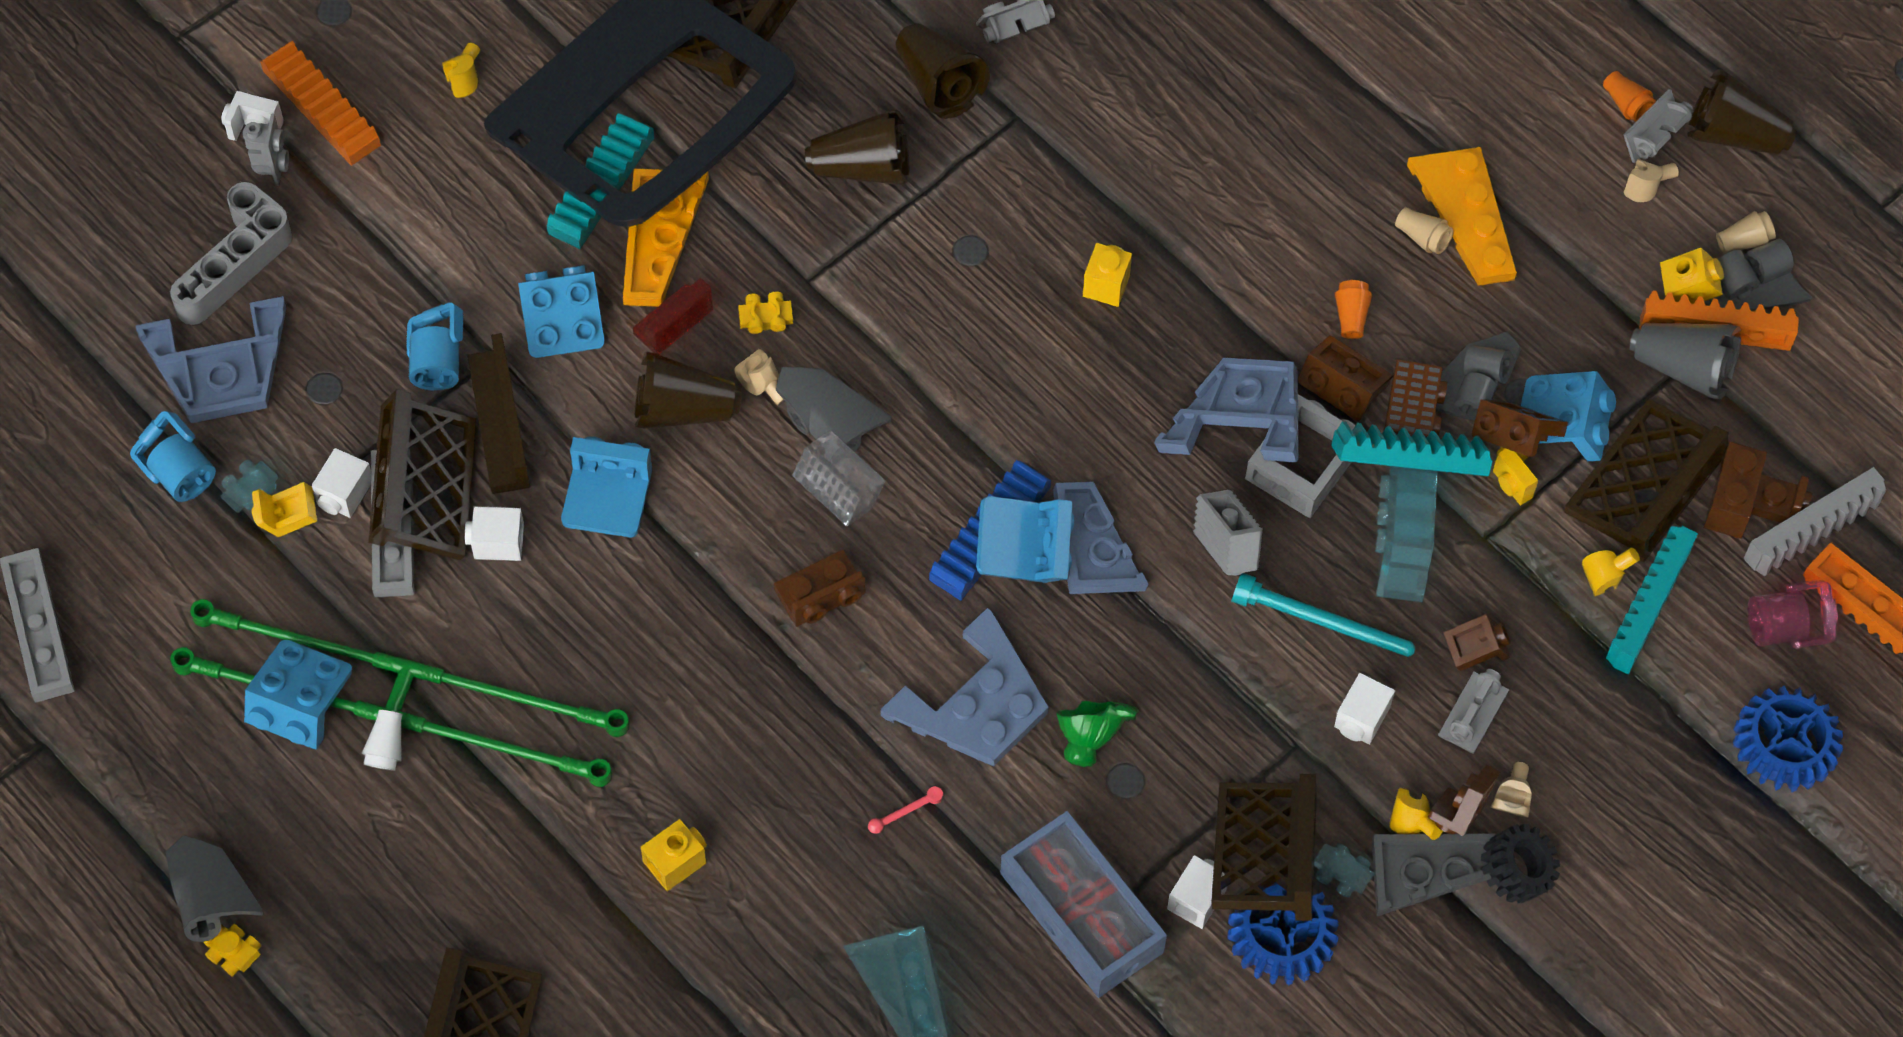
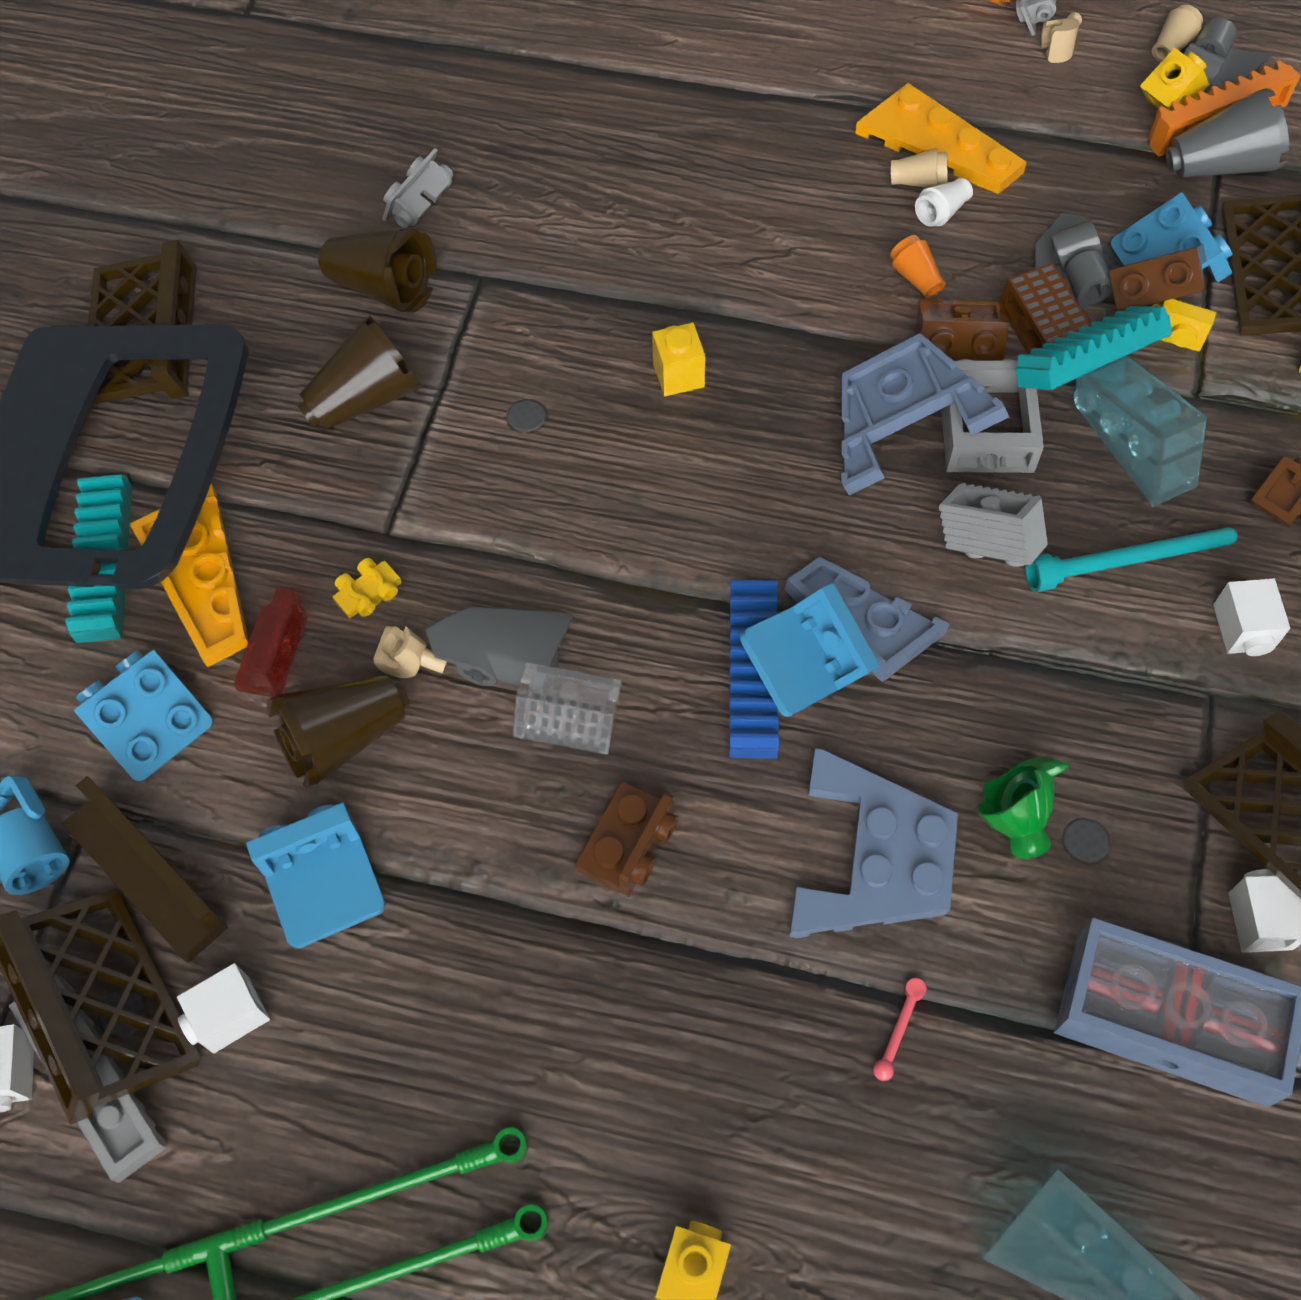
camera: 30 degrees left, 0 degrees up
(1418, 266) = (942, 201): none -> white cone

